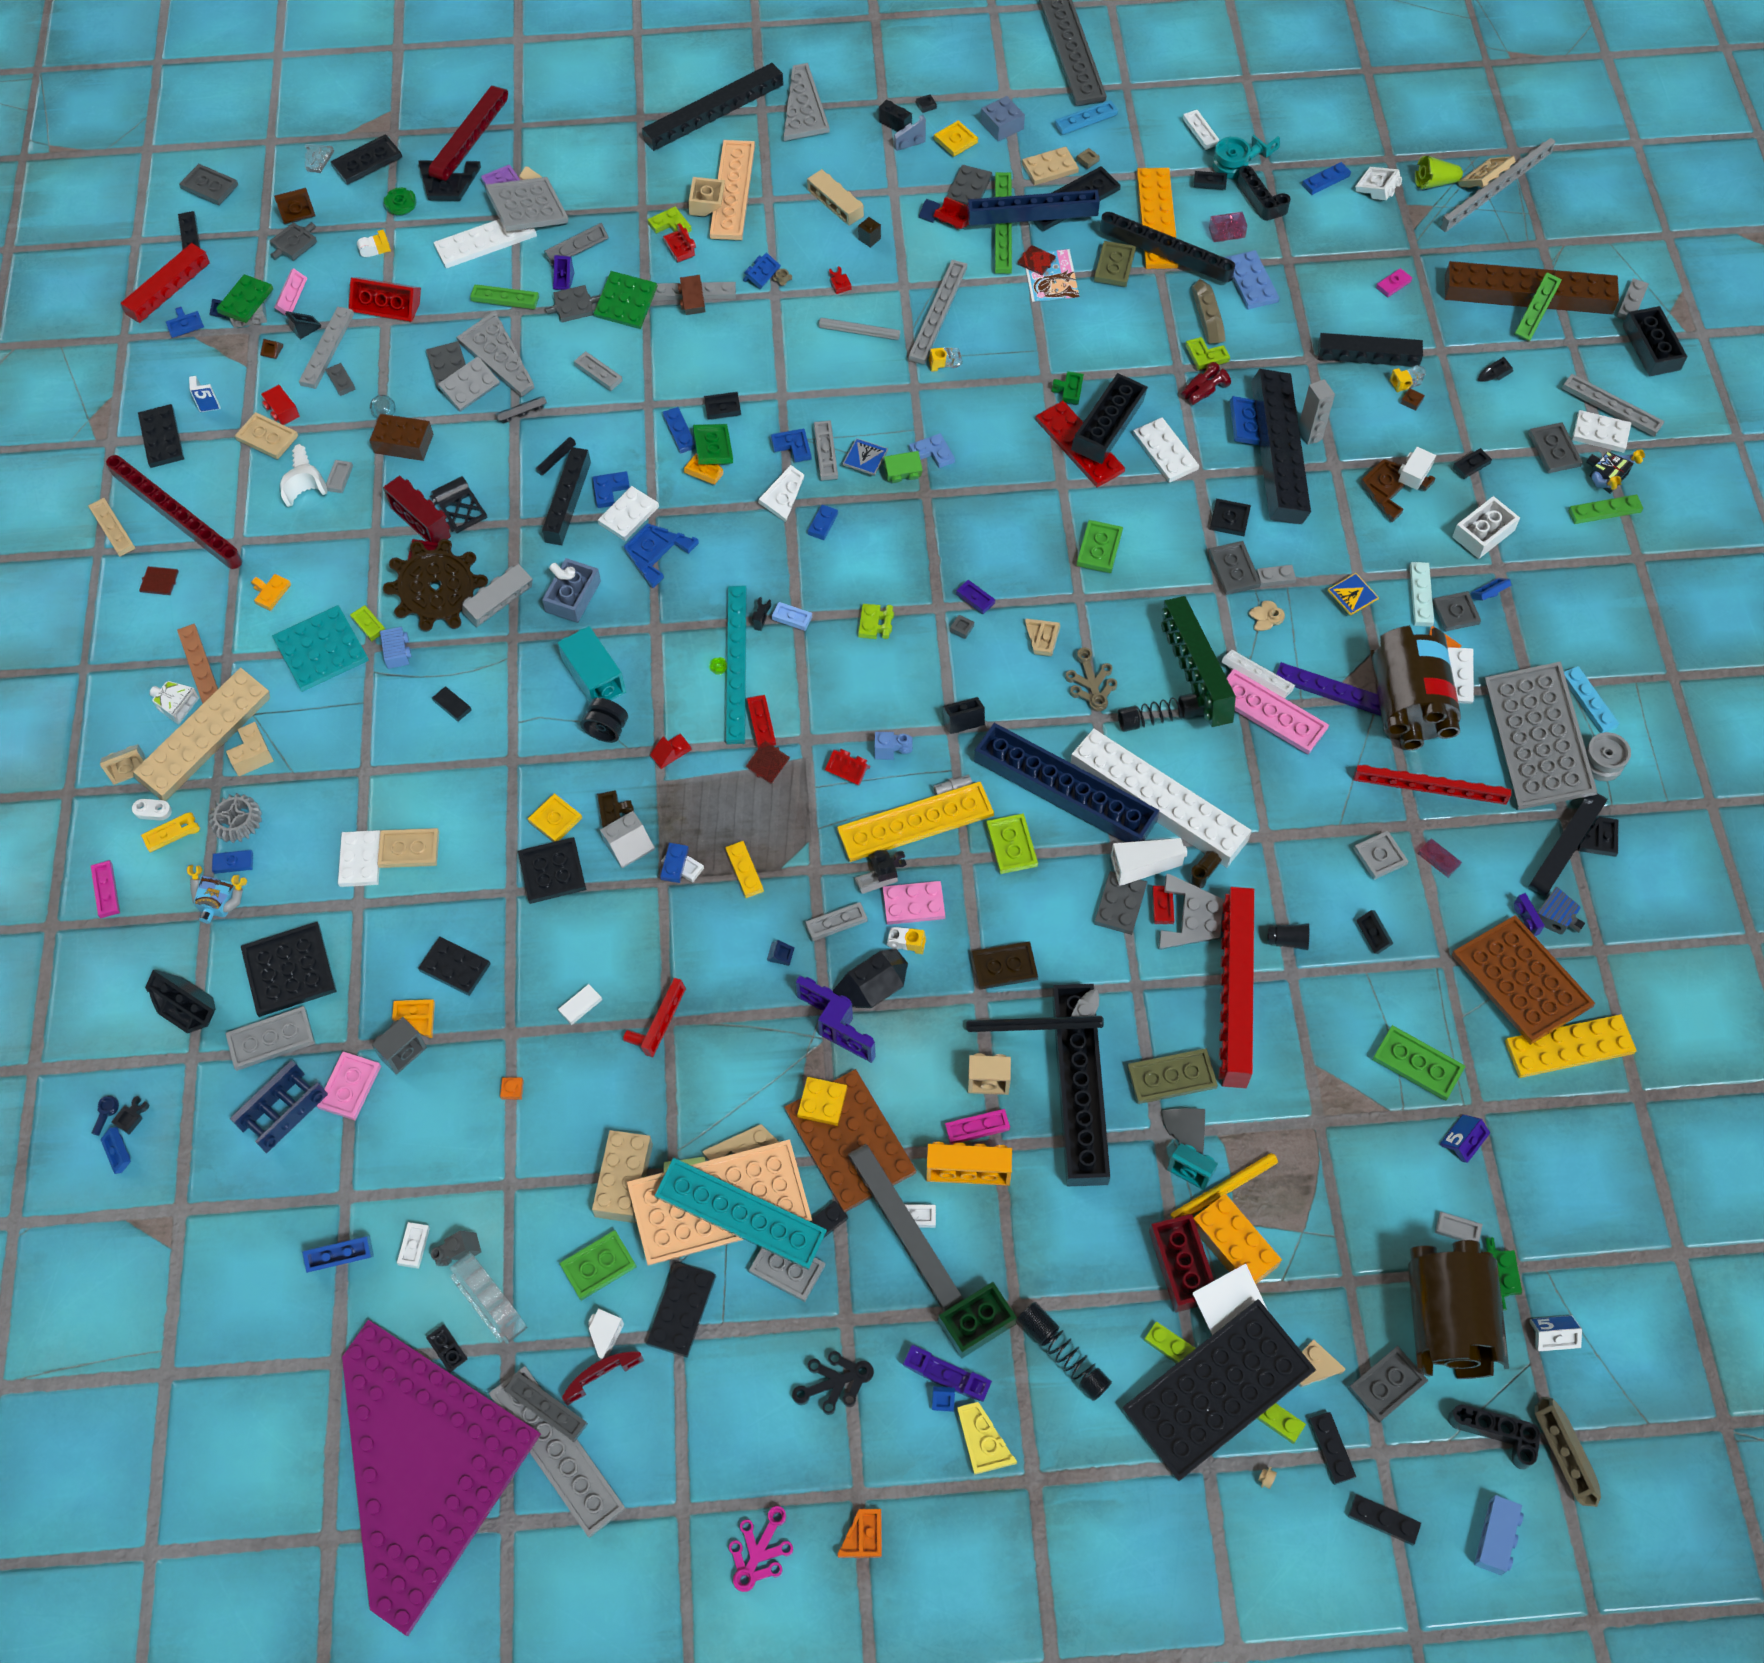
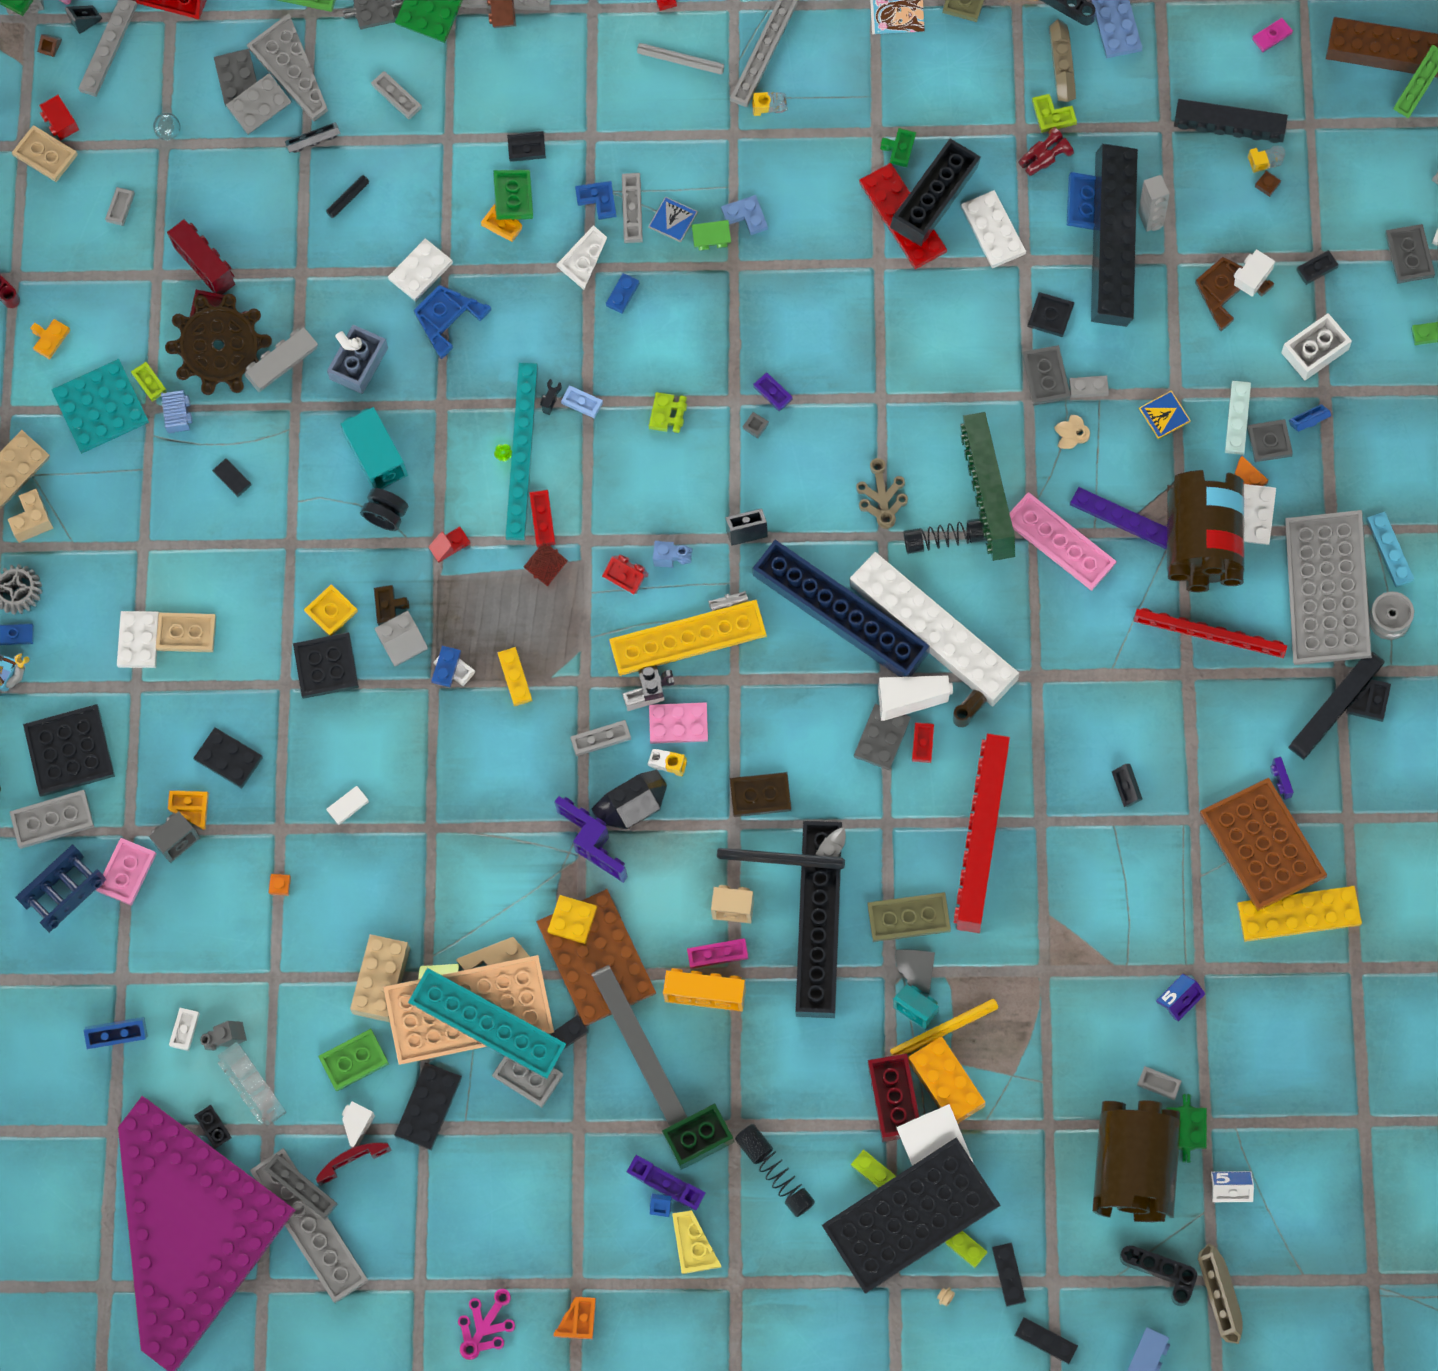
camera: 10 degrees right, 10 degrees up
(301, 477) = (81, 206): white animal -> none
(340, 379) = (122, 87): dark grey plate -> none
(401, 437) = (186, 165): reddish brown brick -> none
(452, 494) = (235, 237): black piece -> none
(566, 496) = (356, 247): black brick -> none
(607, 484) = (398, 234): blue plate -> none
(651, 1041) = (414, 847): red piece -> none
(679, 430) = (479, 172): blue plate -> none
(780, 953) = (544, 766): dark blue slope -> none
(836, 1381) = (565, 1182): black plant -> none
(923, 1215) = (657, 1034): white plate -> none
(1012, 843) = (781, 668): lime plate -> none
(1043, 635) = (837, 441): tan wing -> none
(1099, 546) = (908, 341): bright green plate -> none
(1200, 915) = (957, 759): light grey wing -> none
(1258, 673) = (1052, 499): white plate -> none
(1289, 936) = (1042, 784): black plant -> none
(1322, 1361) = (1009, 1198): tan wing -> none
(1380, 855) = (1146, 705): light grey plate -> none
(1388, 1384) = (1068, 1222): dark grey plate -> none
(1419, 1063) = (1148, 920): bright green plate -> none
(1439, 858) = (1205, 711): clear pink plate -> none
(1496, 370) = (1363, 155): black plate -> none
(1560, 912) = (1313, 778): dark grey torso -> none

